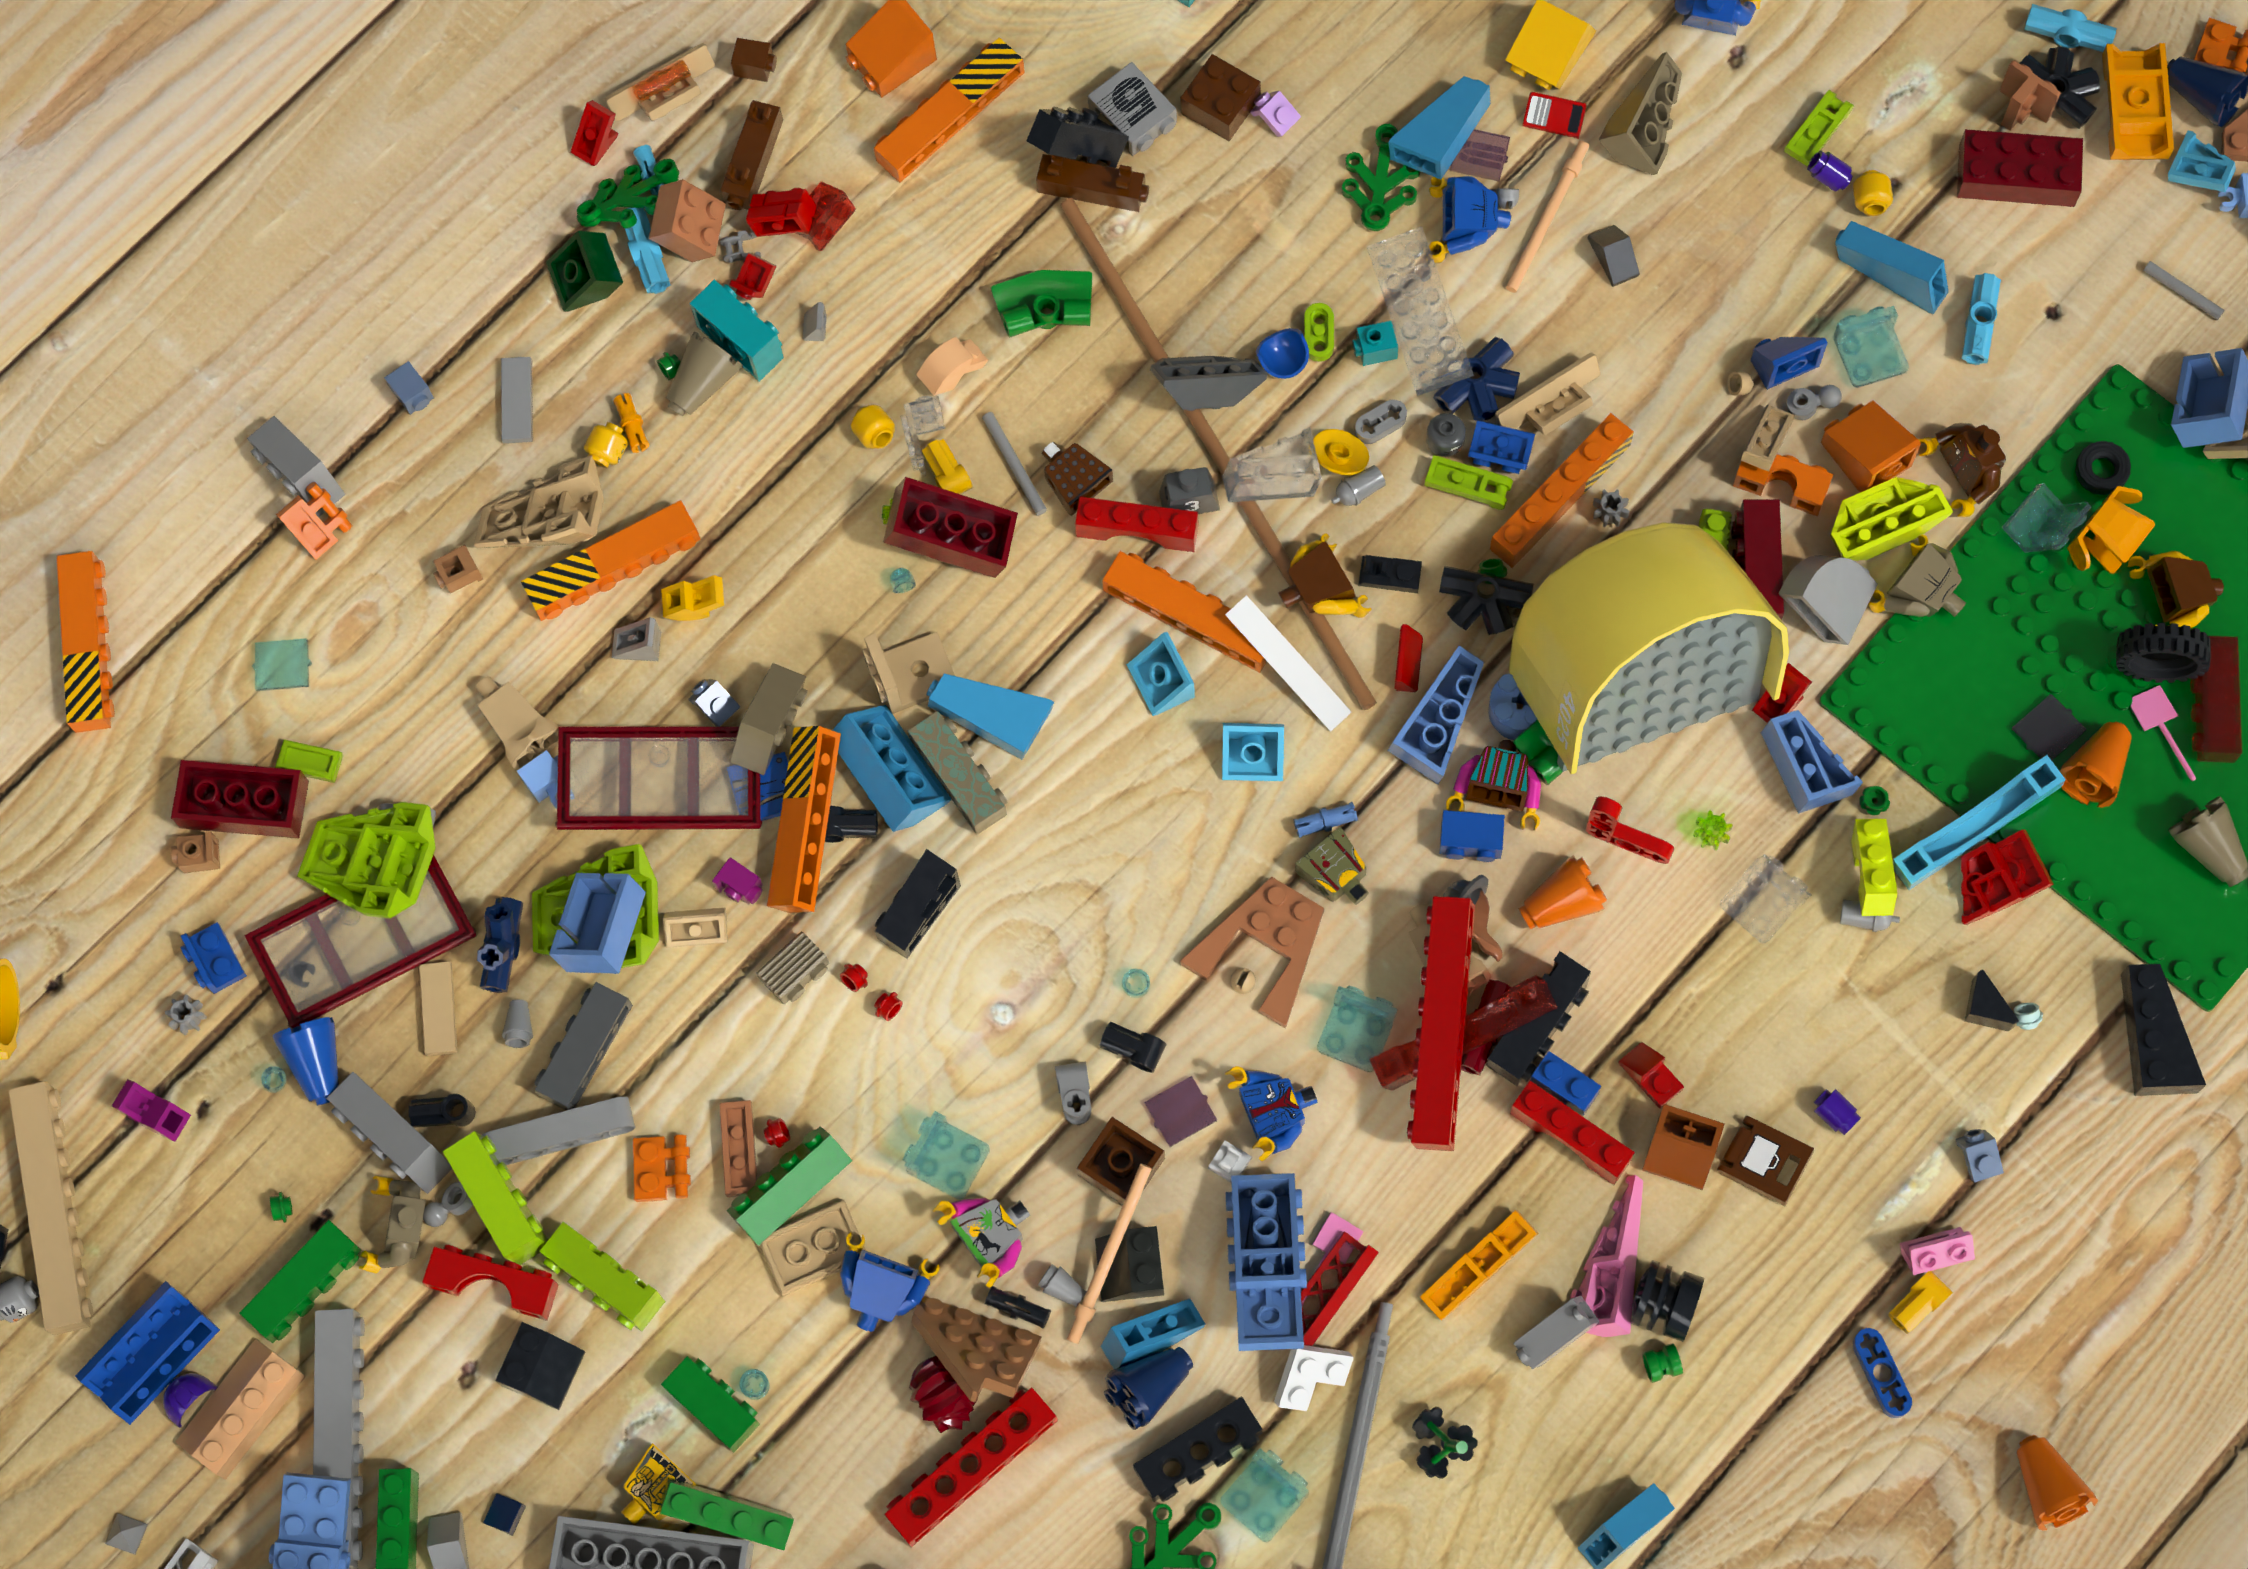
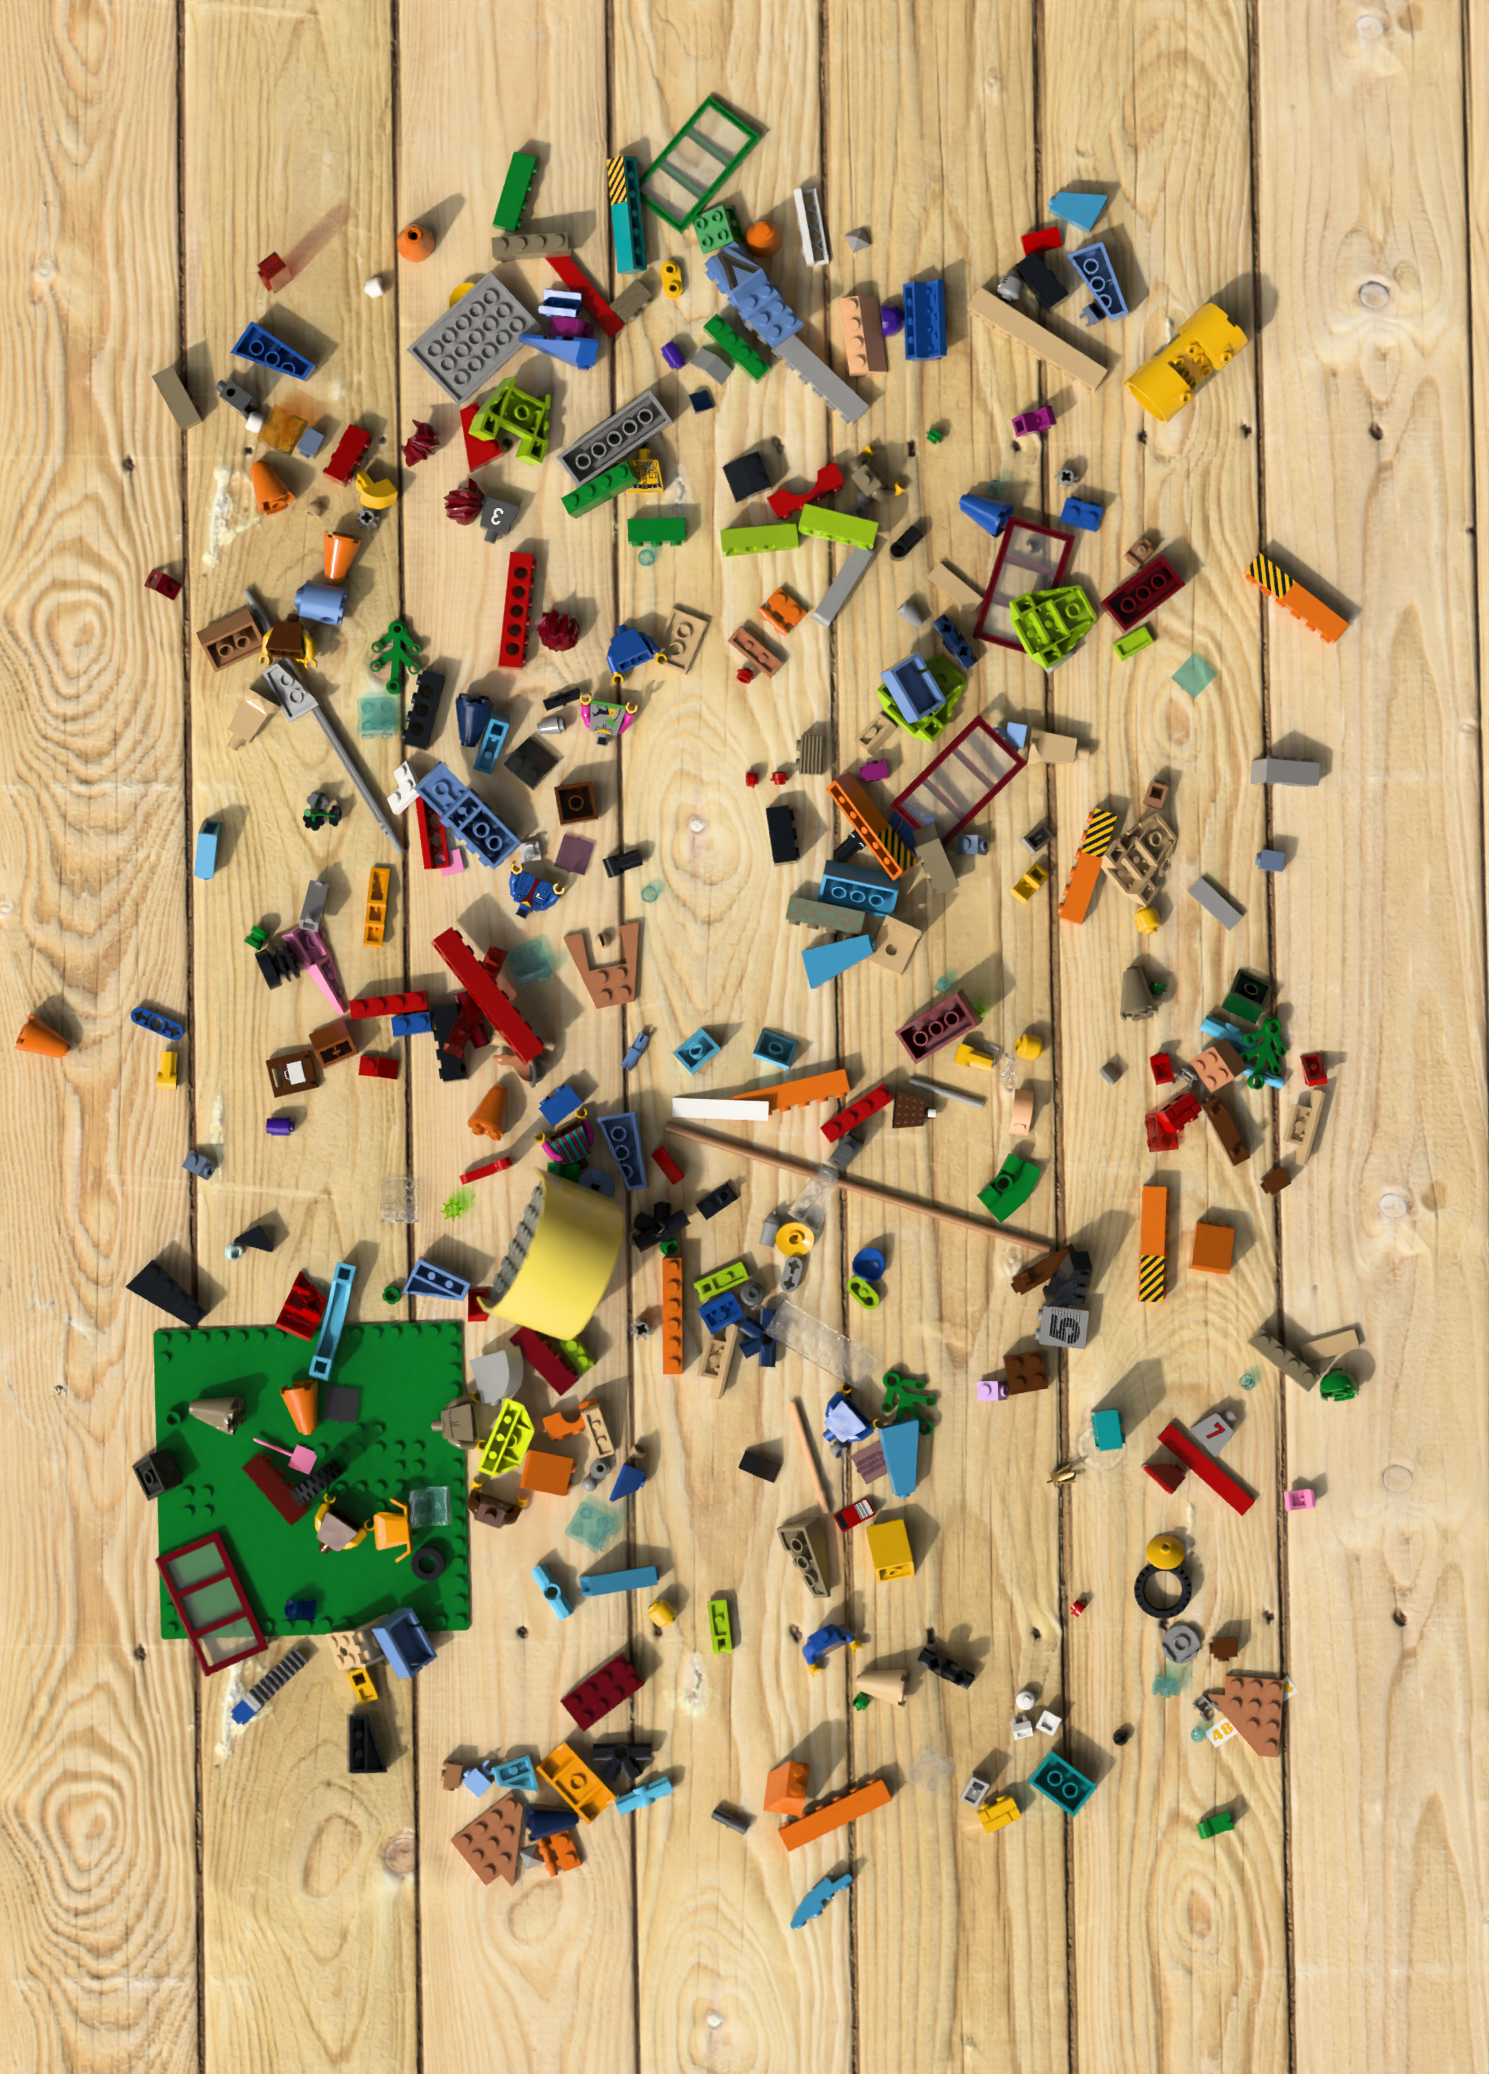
camera: 120 degrees right, 15 degrees up
(301, 1282) = (890, 413): green brick -> none
(306, 525) = (1245, 748): orange plate -> none
(389, 1132) = (919, 511): light grey wedge -> none
(583, 1046) = (868, 630): dark grey brick -> none
(631, 423) = (1147, 942): light orange pin -> none
(661, 81) = (1306, 1126): clear orange pin -> none
(737, 329) = (1139, 1033): teal brick -> none
(789, 1185) = (714, 656): brick -> none
(945, 1156) = (657, 735): clear light blue bracket -> none
(976, 1348) = (561, 661): medium nougat wing -> none
(1074, 1088) = (632, 820): light grey piece -> none
(1085, 1310) = (531, 725): light nougat bar -> none
(1208, 380) = (892, 1215): dark grey wedge -> none
(1321, 582) = (742, 1162): reddish brown torso -> none
(1334, 868) = (608, 1031): olive torso -> none
(1376, 343) = (830, 1311): teal brick -> none
(1830, 170) = (692, 1605): dark purple brick -> none
(1852, 916) = (346, 1233): light grey piece -> none
(1877, 876) = (361, 1256): neon yellow arch -> none
(1938, 1250) = (179, 1101): bright pink bracket -> none
(2027, 95) = (629, 1727): nougat bracket -> none
(2184, 290) = (469, 1699): light grey bar -> none

